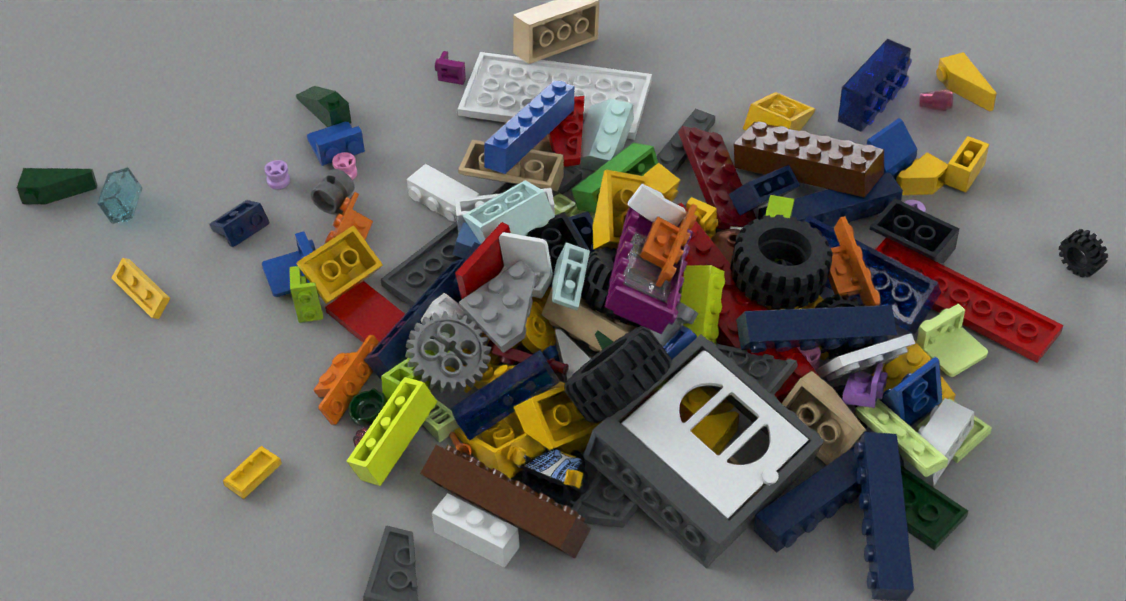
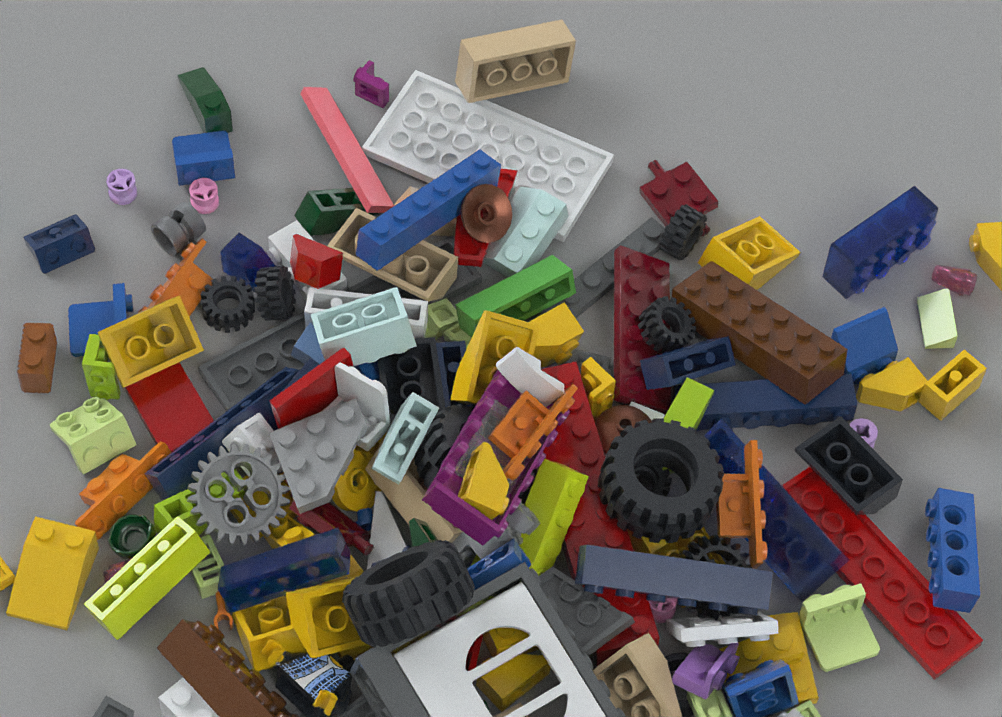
camera: 10 degrees right, 10 degrees up
(248, 302) = (37, 357): none -> dark orange brick
(310, 449) = (52, 573): none -> yellow slope
(312, 344) = (94, 433): none -> yellowish green bracket
(387, 224) = (225, 290): none -> black tyre
(398, 204) = (243, 259): none -> clear blue slope
(425, 214) = (275, 293): none -> black tyre
(442, 110) = (347, 150): none -> coral tile
(447, 152) = (327, 210): none -> dark green slope
(452, 181) = (314, 262): none -> red slope
(573, 123) = (496, 213): none -> copper dish
(651, 281) = (485, 483): none -> yellow slope
(710, 92) = (676, 188): none -> dark red plate
(724, 110) = (683, 232): none -> black tyre
(737, 168) = (675, 316): none -> black tyre
(936, 128) = (937, 320): none -> yellowish green slope
(1016, 269) = (953, 550): none -> blue brick

